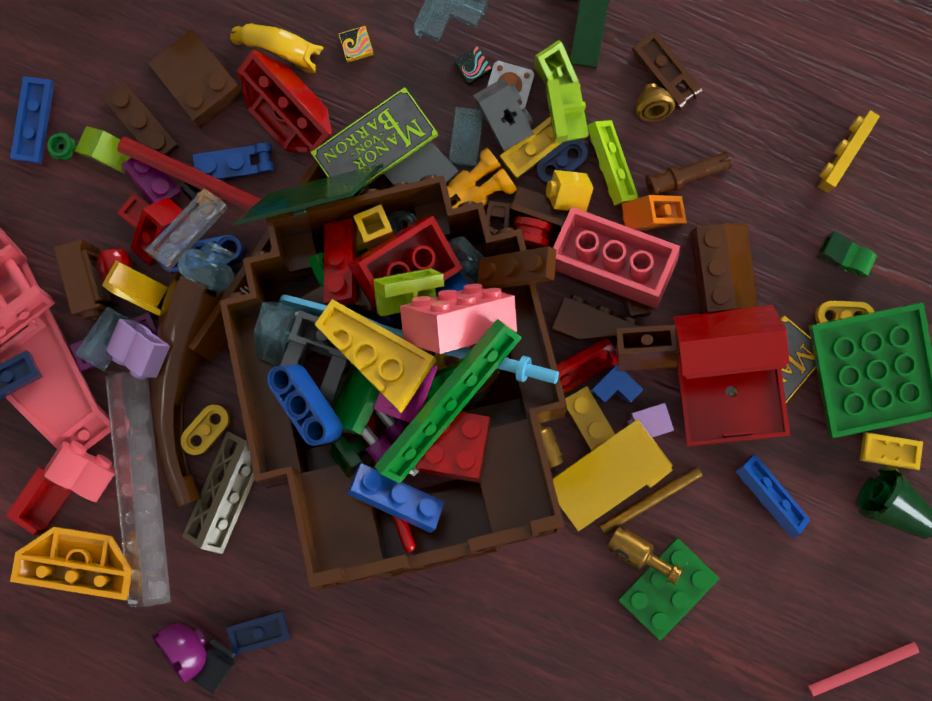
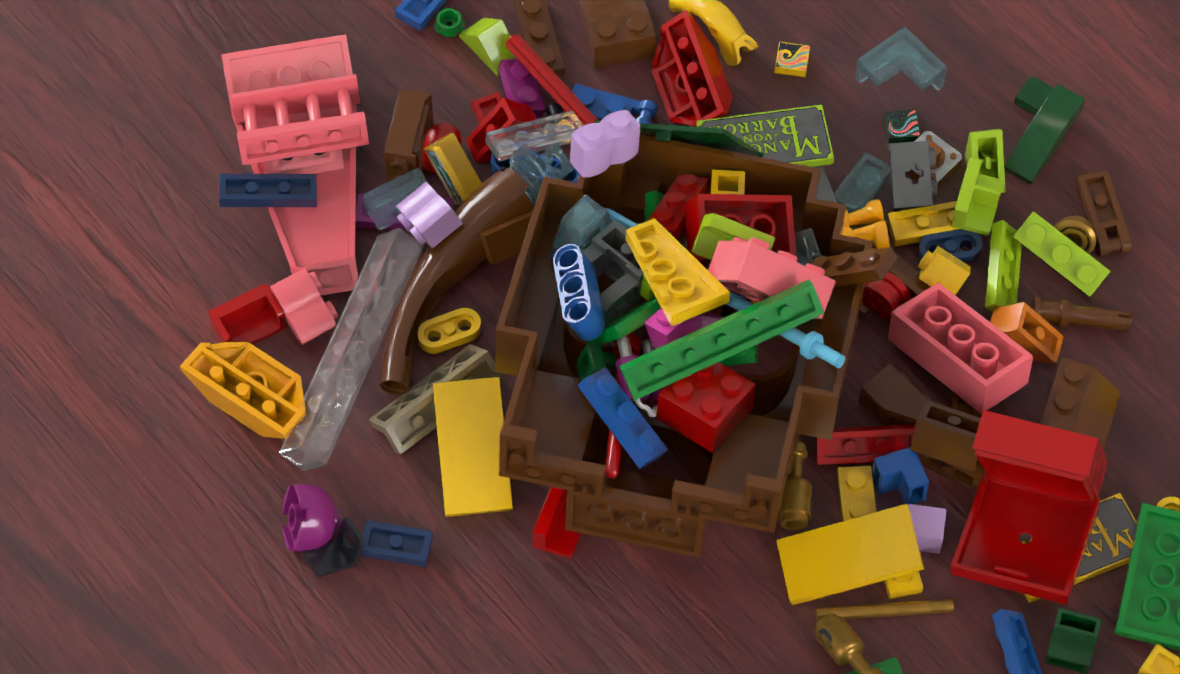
camera: 25 degrees right, 25 degrees down
(260, 242) = (605, 143): none -> lavender brick
(269, 525) = (469, 444): none -> yellow tile
(652, 127) = (1061, 253): none -> lime plate
(803, 461) = (1072, 640): none -> dark green piece

